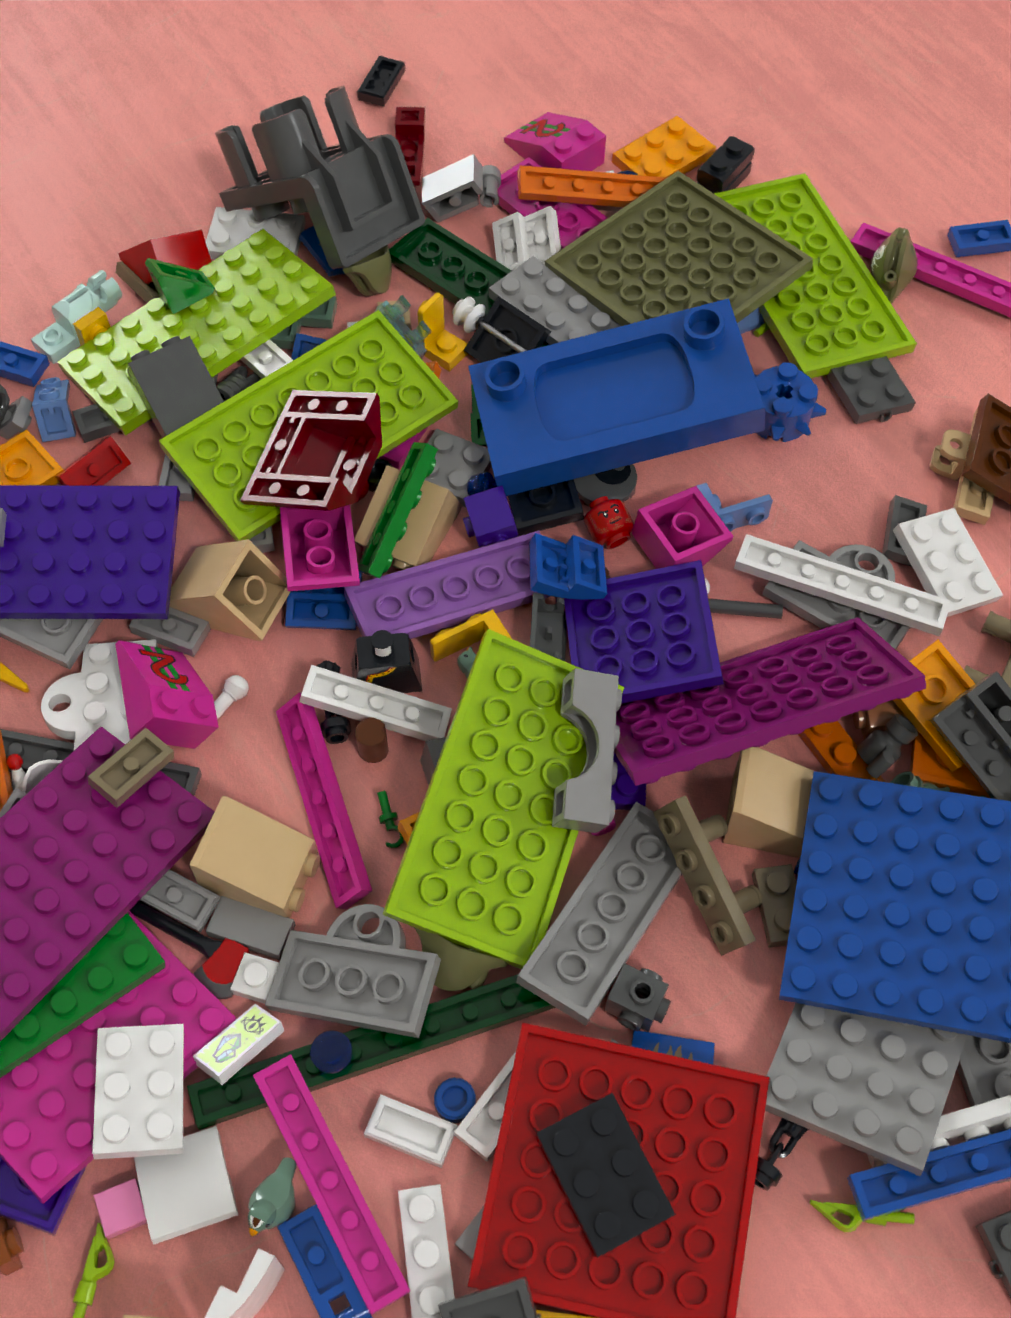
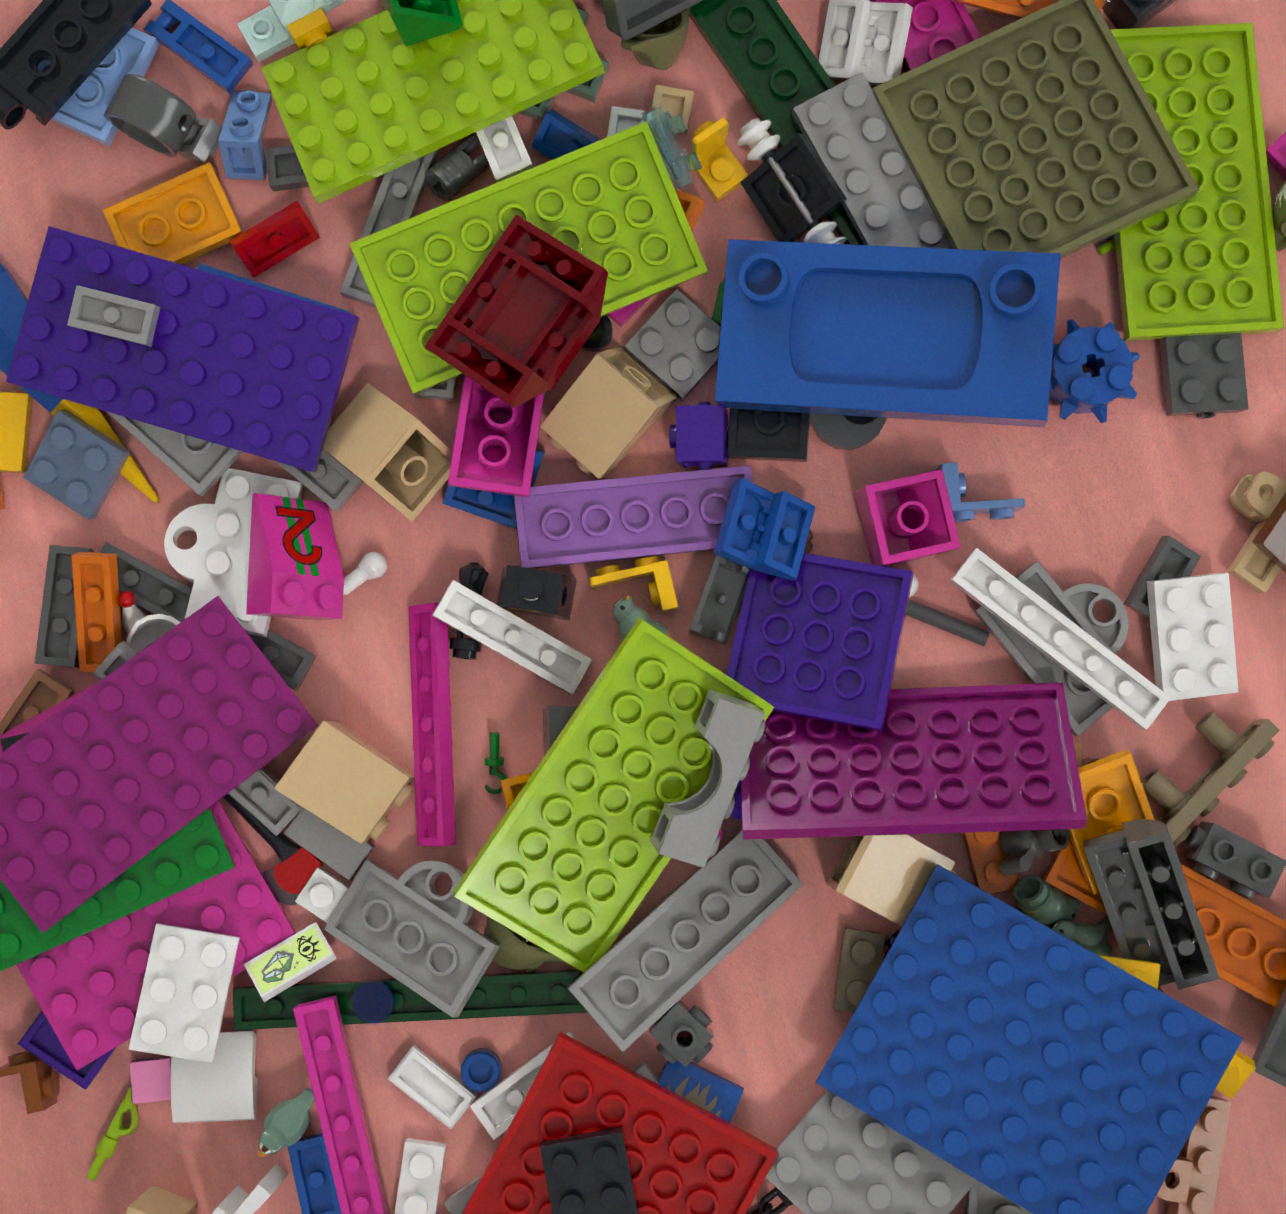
camera: 20 degrees right, 25 degrees up
(131, 767) = (236, 664): dark tan plate -> none
(173, 384) = (383, 170): dark grey brick -> none
(371, 740) = (498, 673): reddish brown piece -> none
(392, 521) = (593, 416): green plate -> none
(480, 483) = (702, 386): clear blue plate -> none
(609, 522) = (832, 476): red head -> none
(711, 892) = (785, 917): dark tan plate -> none

